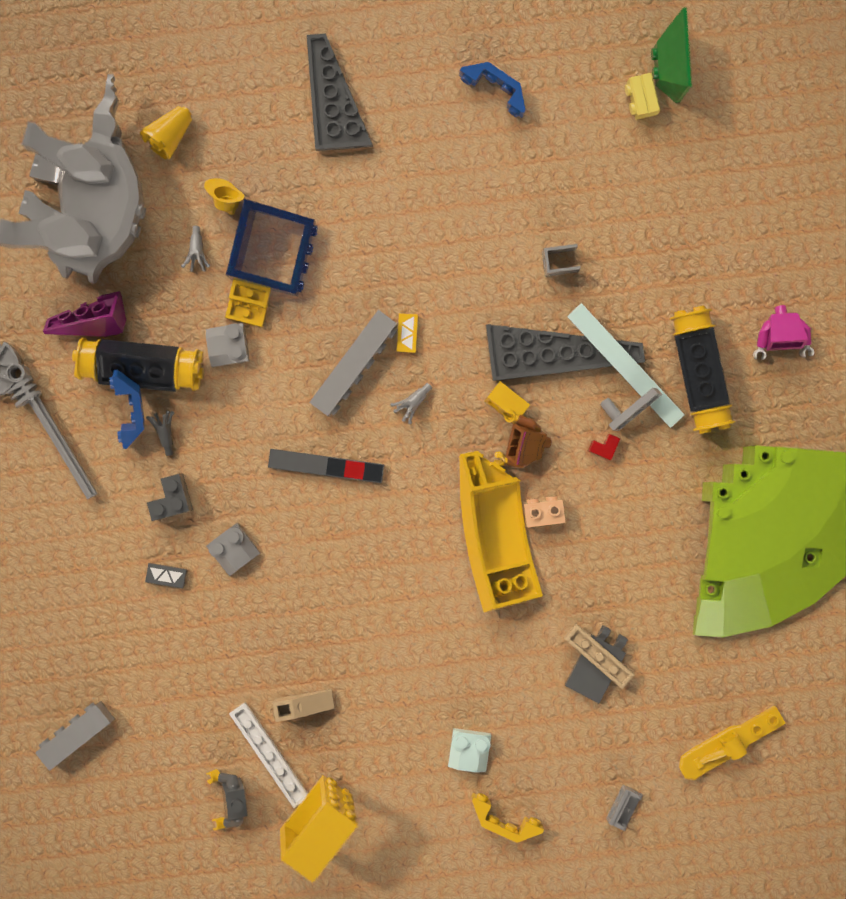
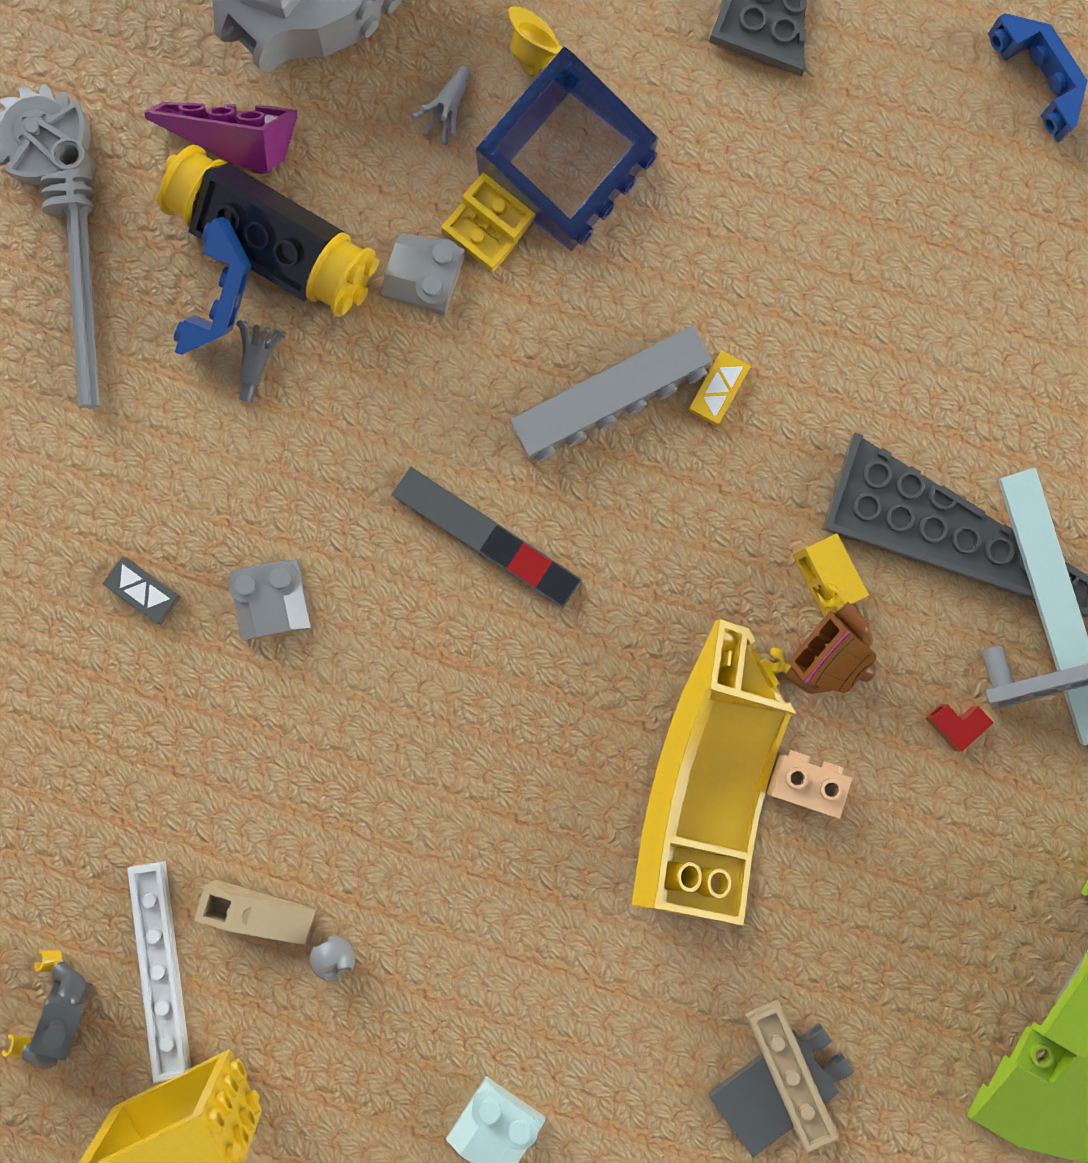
camera: 25 degrees right, 5 degrees down
(175, 501) = (215, 477): dark grey brick -> none
(351, 708) = (332, 958): none -> light grey piece
(412, 402) = (675, 501): light grey piece -> none
(559, 249) = (1026, 368): light grey piece -> none

